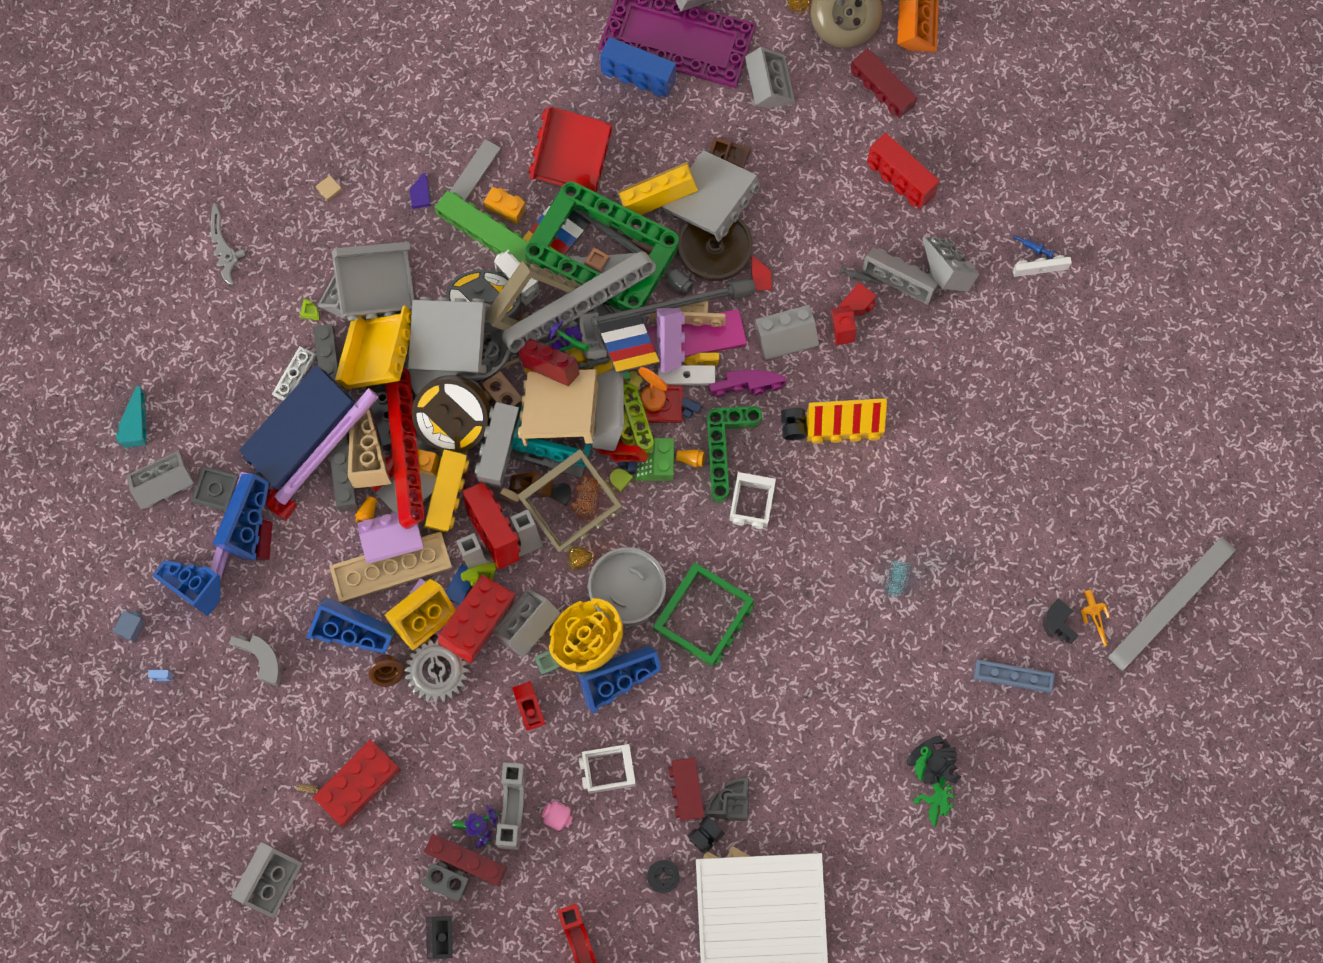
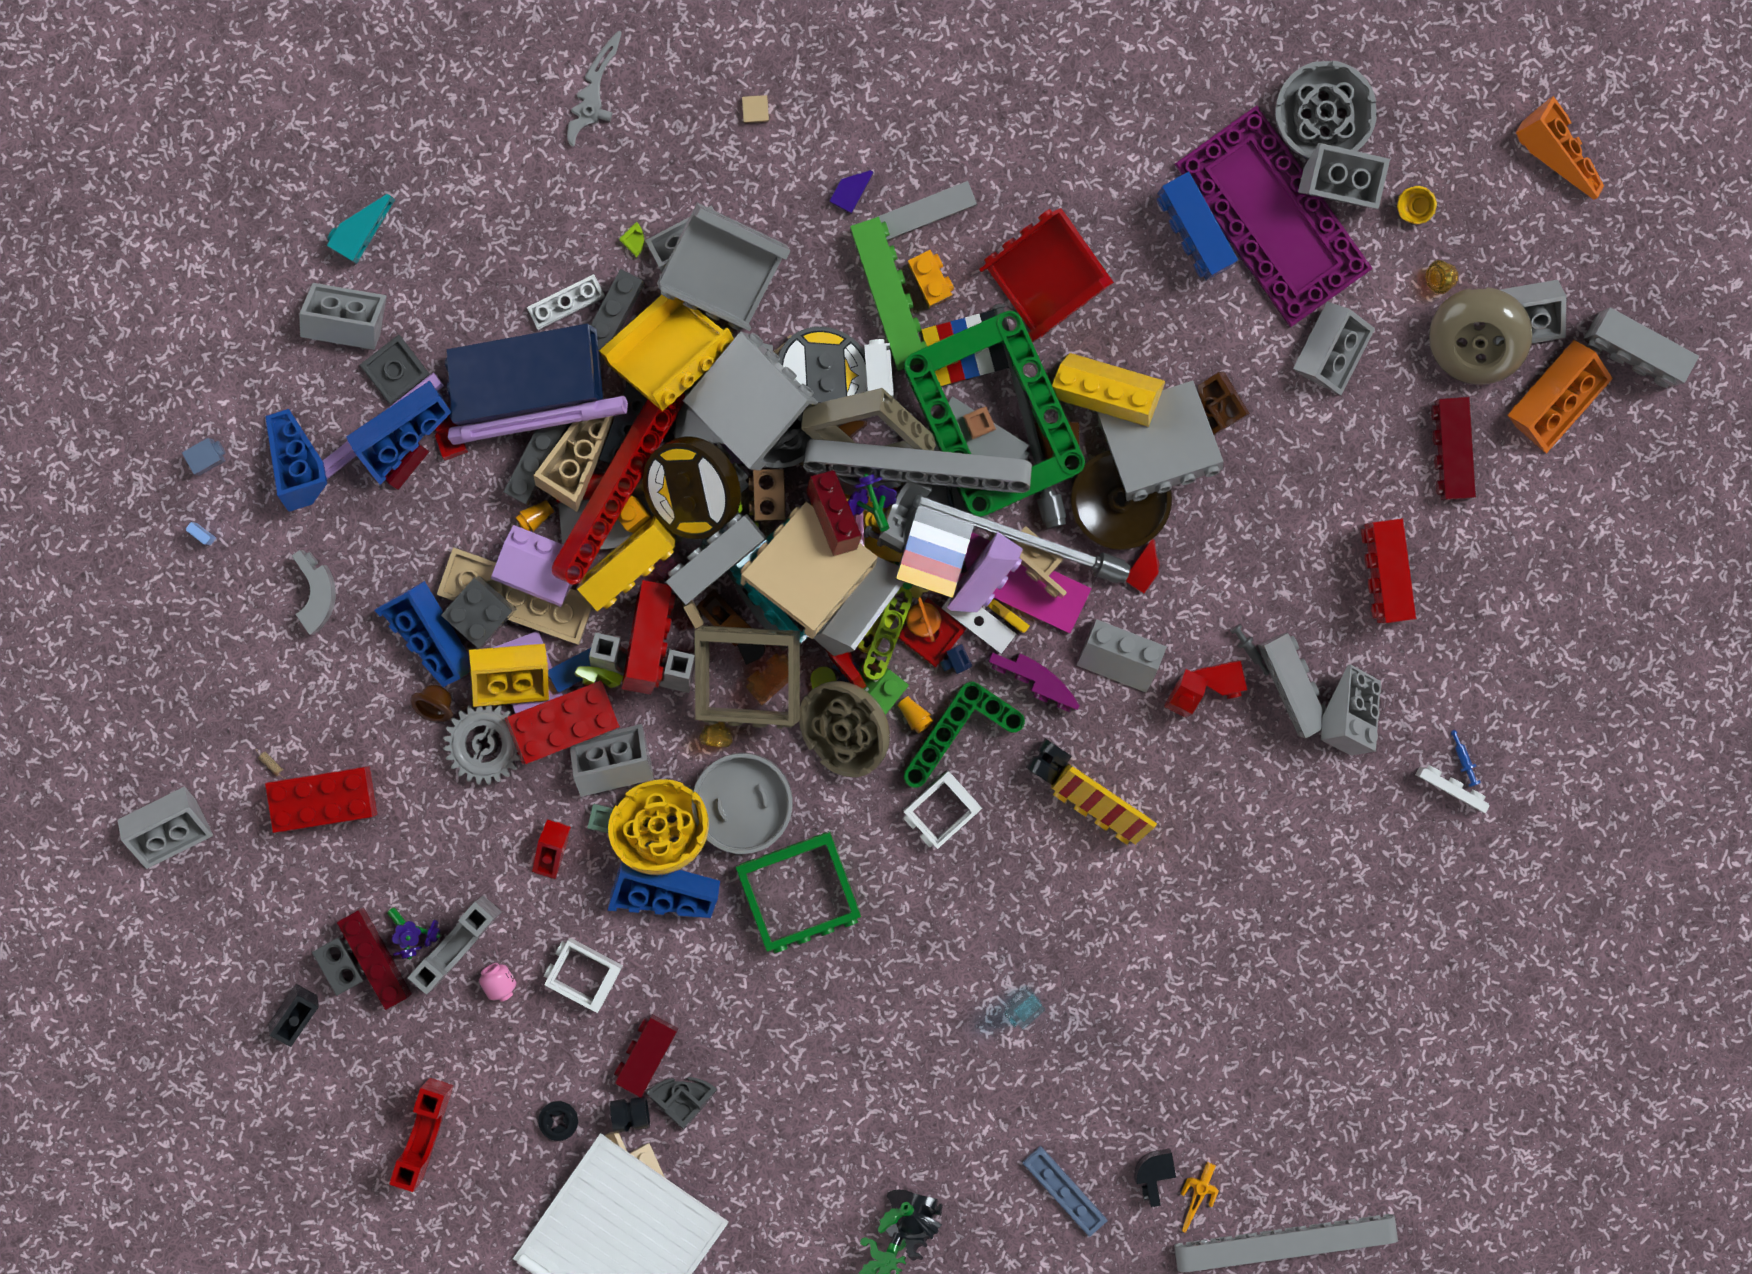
camera: 35 degrees right, 15 degrees up
(374, 589) = (478, 612): none -> dark grey brick
(641, 502) = (847, 742): none -> dark tan brick

